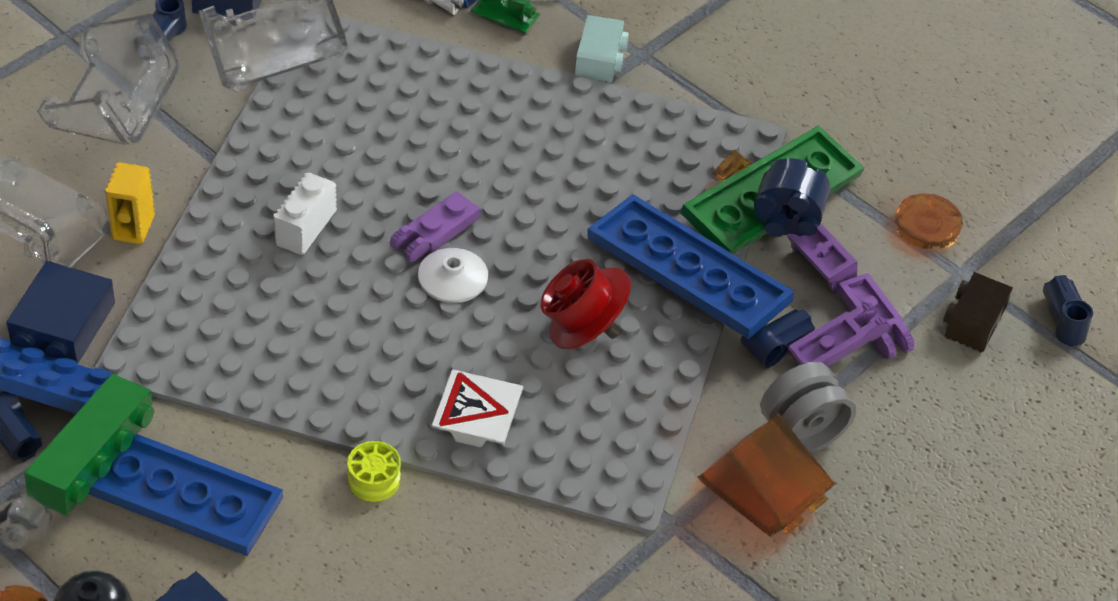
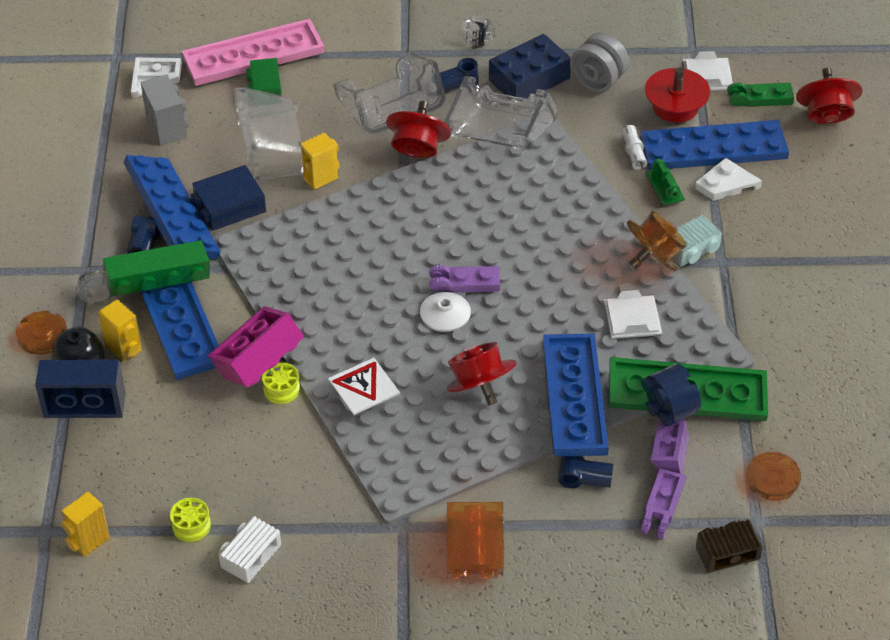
camera: 50 degrees right, 0 degrees up
(131, 543) = (120, 330): none -> yellow brick
(206, 105) = (416, 132): none -> red piece
(304, 213) = (399, 224): white brick -> none
(317, 447) = (256, 346): none -> dark pink brick
(589, 58) = (658, 239): none -> clear orange piece
(635, 156) = (632, 315): none -> white piece
(731, 165) = (678, 356): clear orange tile -> none
(810, 404) = (538, 517): light grey wheel -> none
(839, 337) = (615, 497): medium lavender hinge -> none
(1069, 310) = (789, 587): dark blue piece -> none

